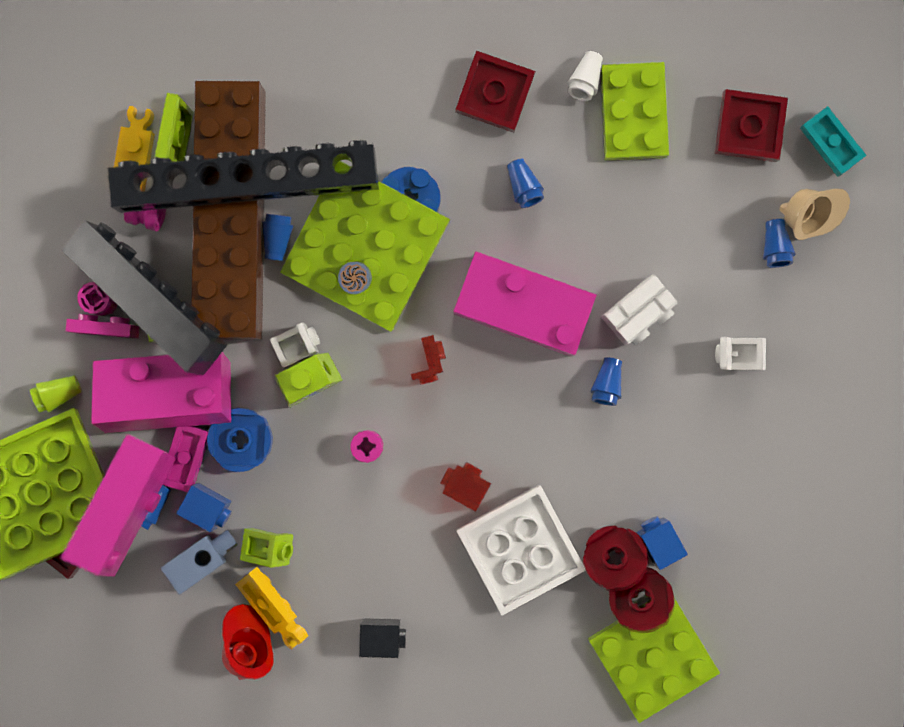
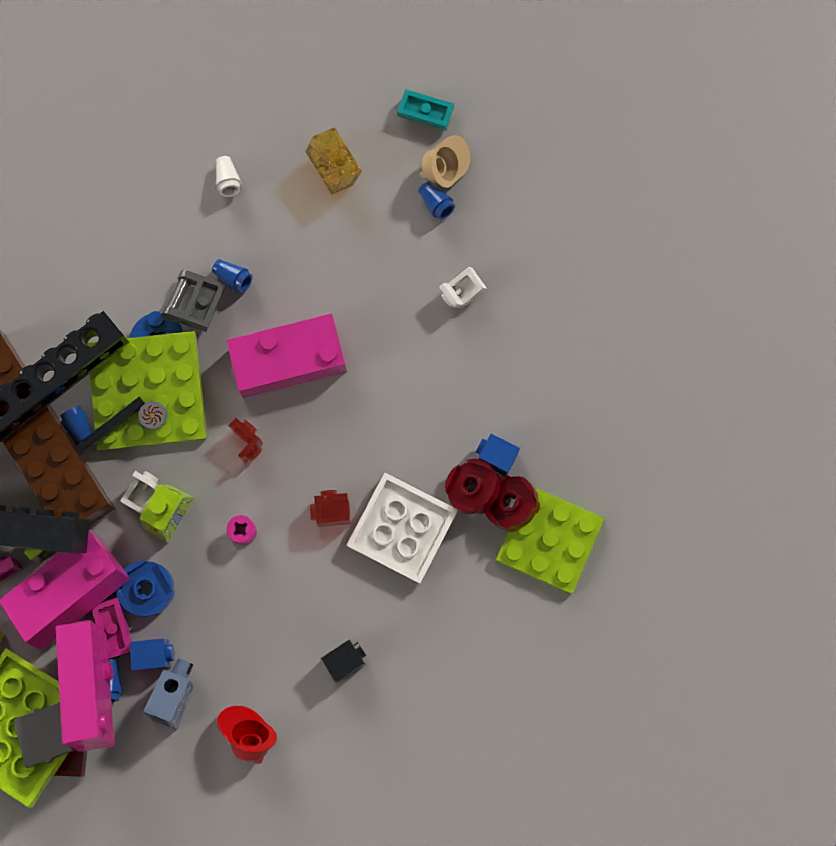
camera: 30 degrees left, 10 degrees down
(53, 518) = (41, 735): none -> dark grey piece
(266, 548) = (216, 653): lime bracket -> none
(271, 607) = (248, 694): yellow plate -> none
(305, 259) = (109, 426): none -> black bar
(477, 192) = (202, 302): none -> dark grey plate
(495, 91) = (169, 227): dark red plate -> none
(607, 385) = (384, 371): blue cone -> none
(634, 111) = (276, 178): lime plate -> none
(639, 310) = (371, 306): white brick -> none
(704, 133) = (333, 160): none -> clear yellow brick
(751, 125) = (365, 133): dark red plate -> none

